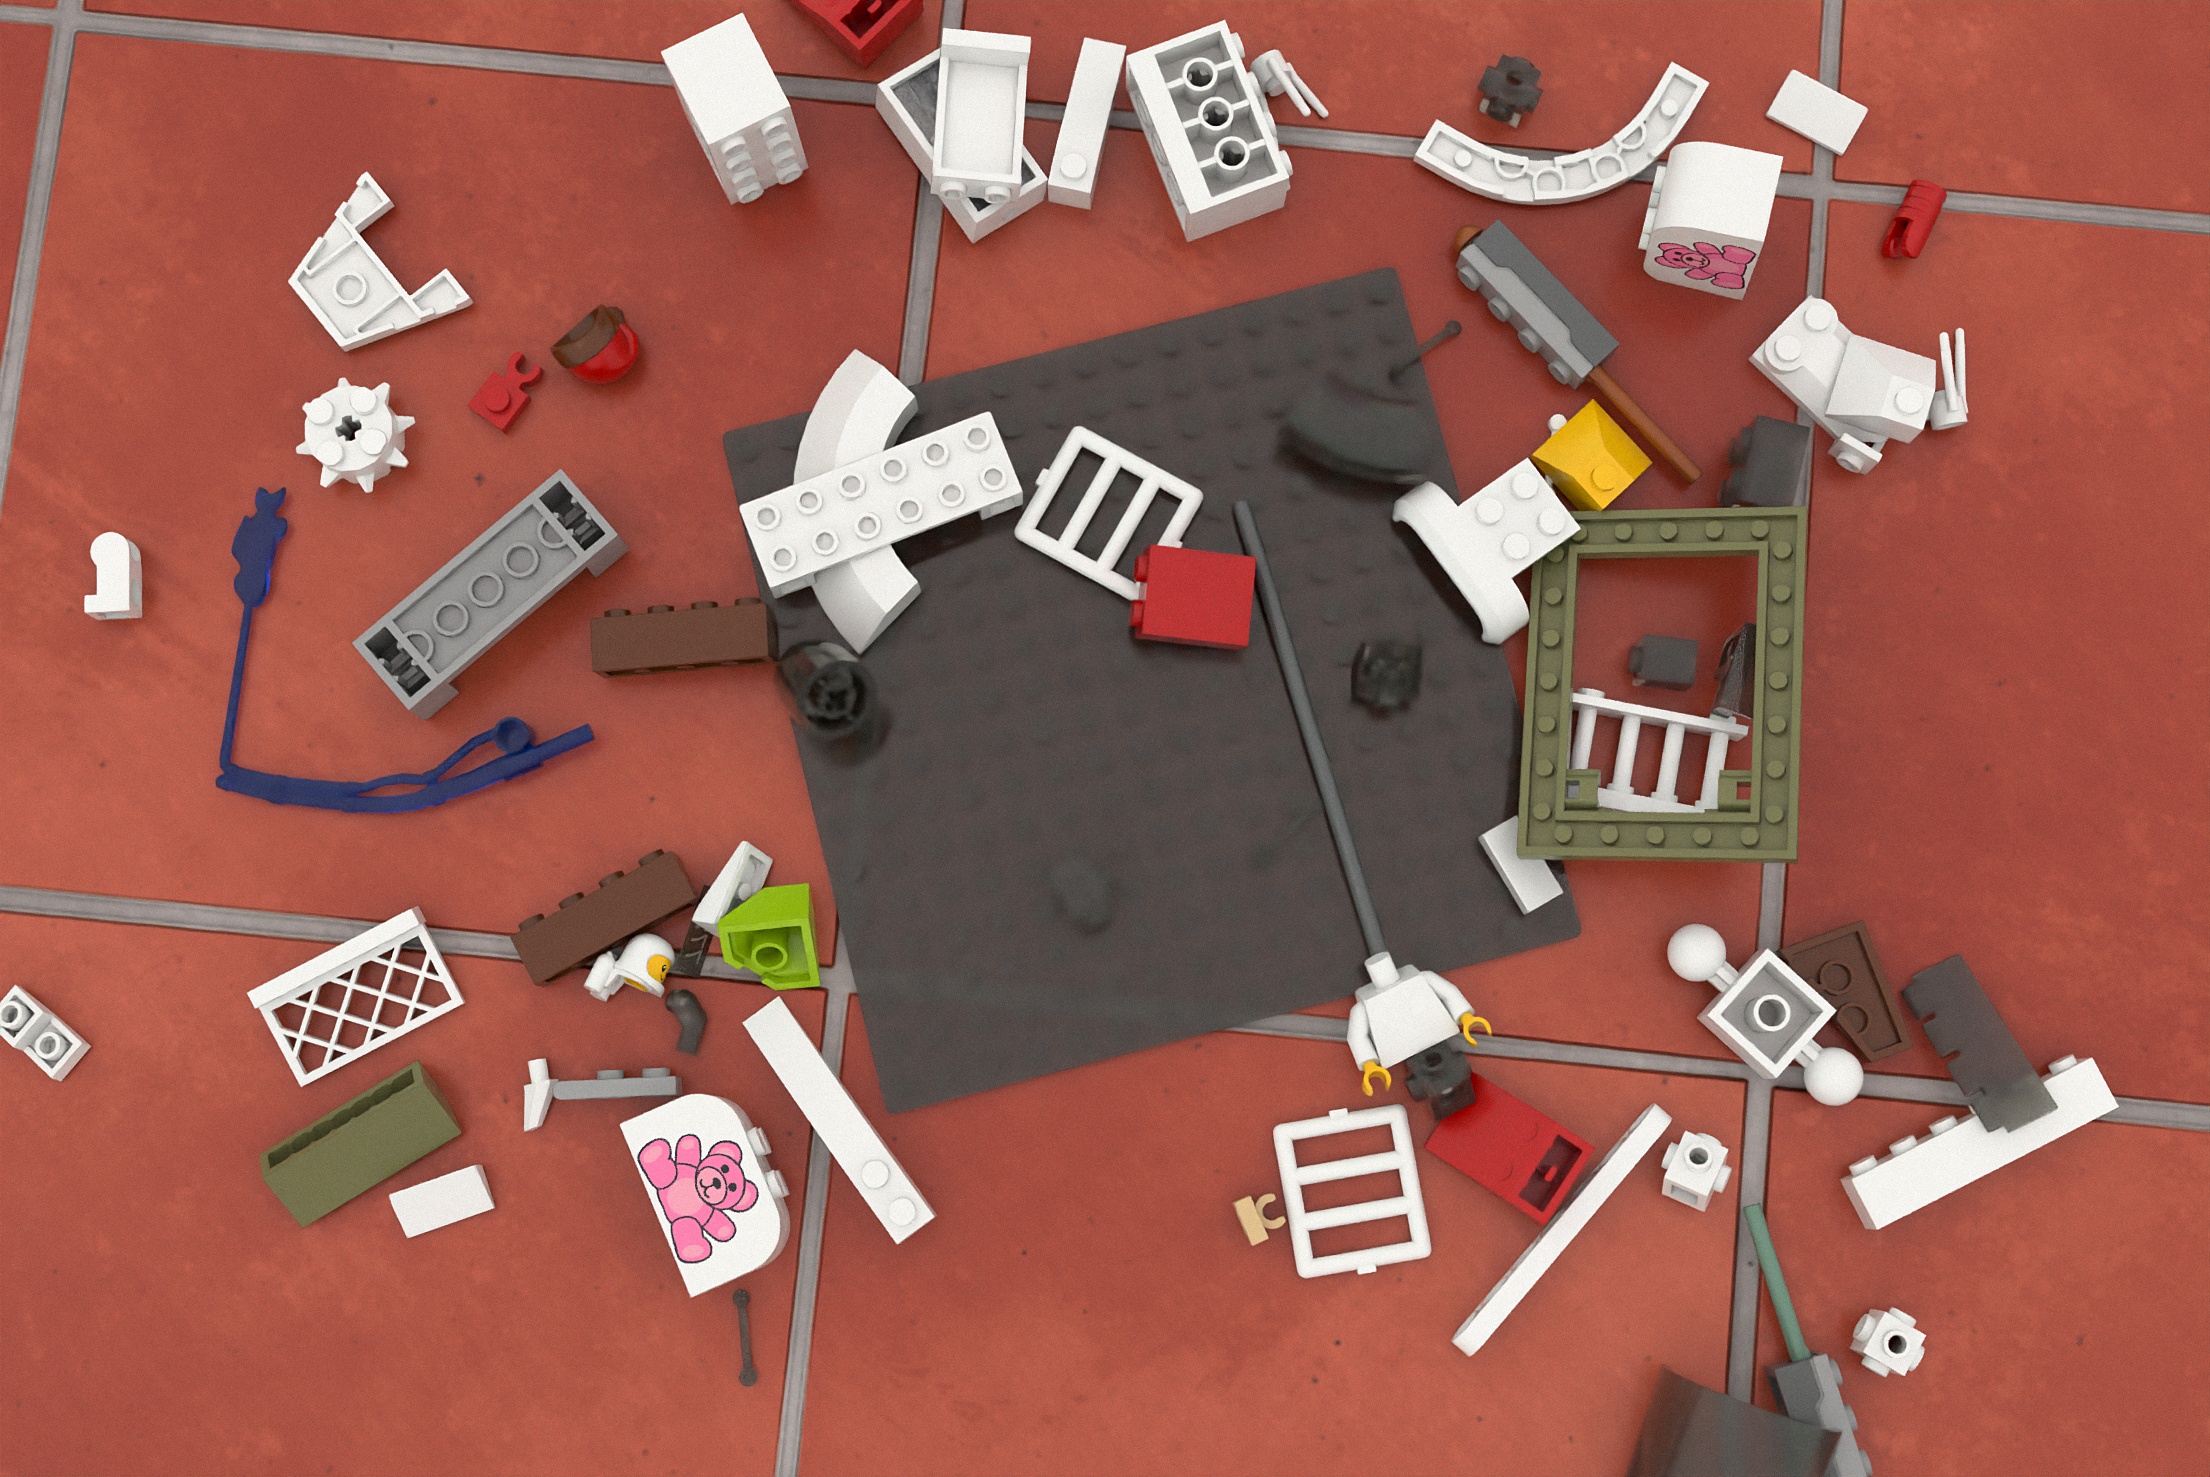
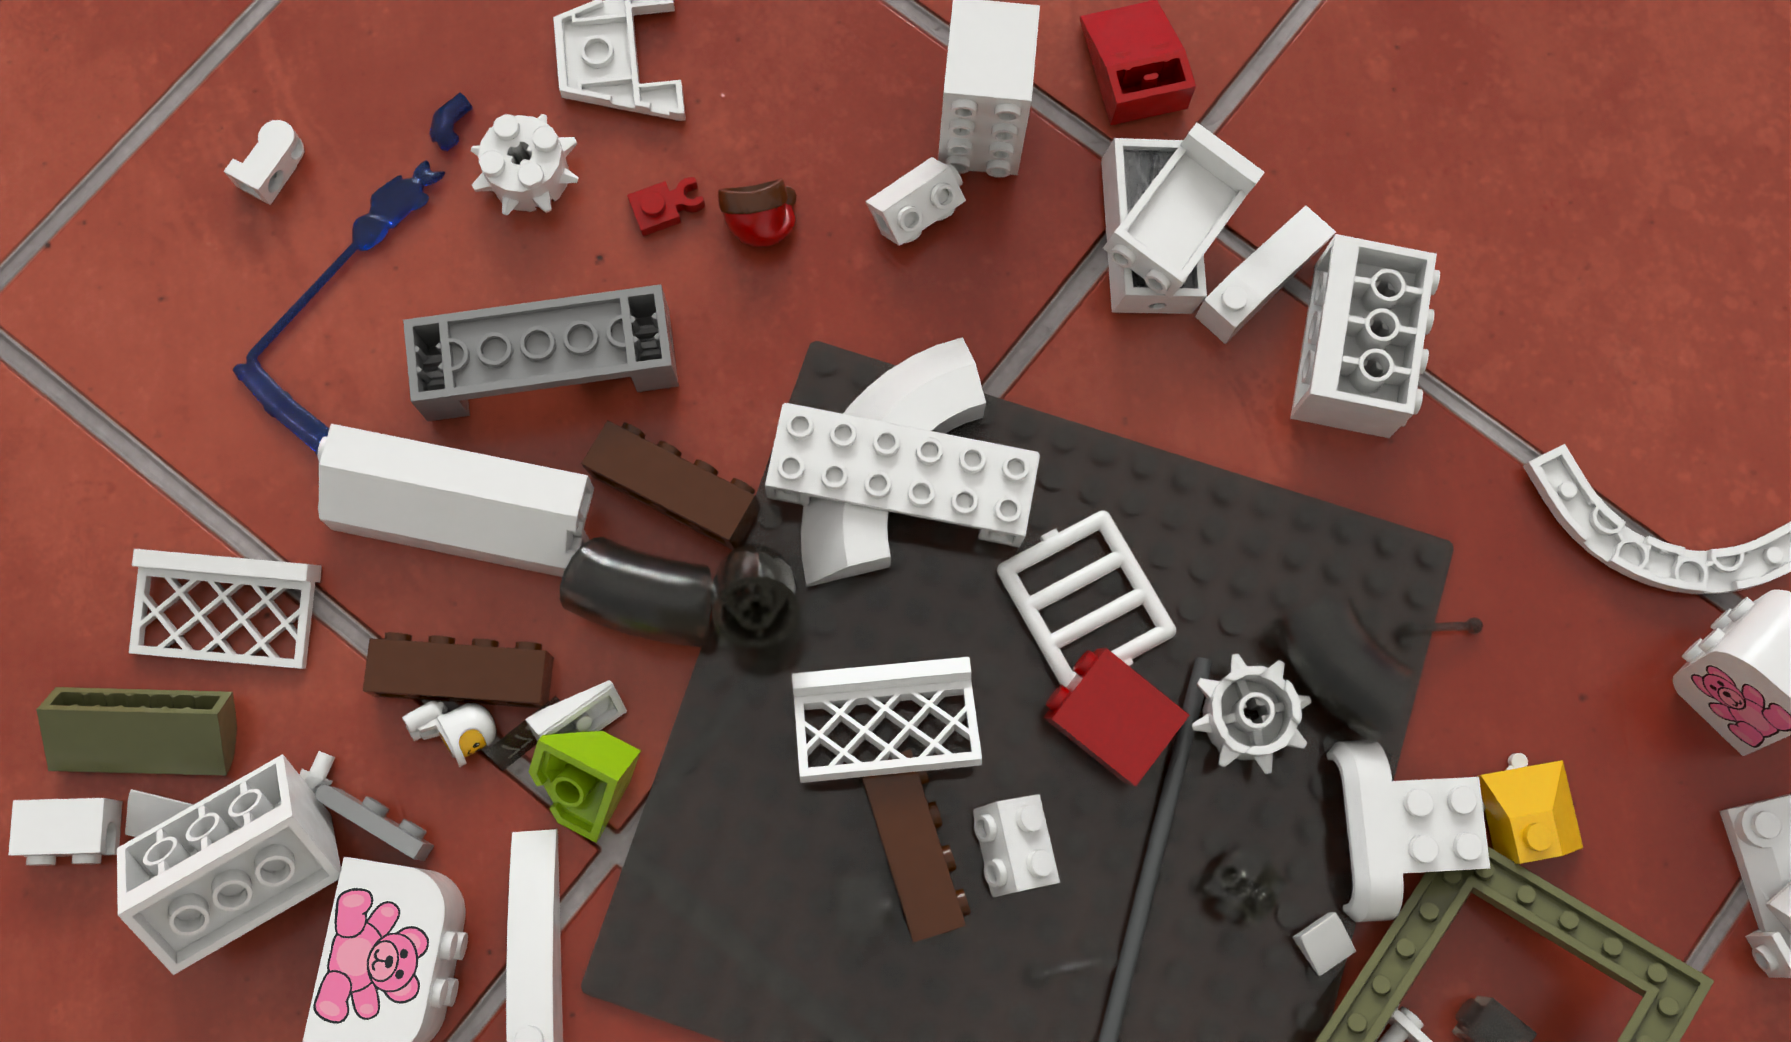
camera: 30 degrees right, 5 degrees down
(251, 440) = (444, 120): none -> clear blue arm
(354, 1264) = (65, 828): none -> white brick
(502, 774) = (452, 500): none -> white panel
(522, 1195) = (226, 865): none -> white brick
(690, 1016) = (474, 800): clear smoke arm -> none
(720, 750) = (638, 593): none -> clear smoke brick
(735, 249) = (917, 201): none -> white brick
(975, 703) = (874, 687): none -> white fence
(1091, 814) = (915, 853): none -> reddish brown brick
(1177, 759) = (1015, 845): none -> white bracket
(1277, 77) = (1450, 330): white plant -> none
(1306, 499) = (1262, 691): none -> white brick
(1484, 677) = (1325, 943): none -> white slope
(1510, 89) = (1643, 457): clear smoke brick -> none
(1552, 323) = (1565, 676): piece -> none
(1764, 464) = (1688, 915): clear smoke brick -> none

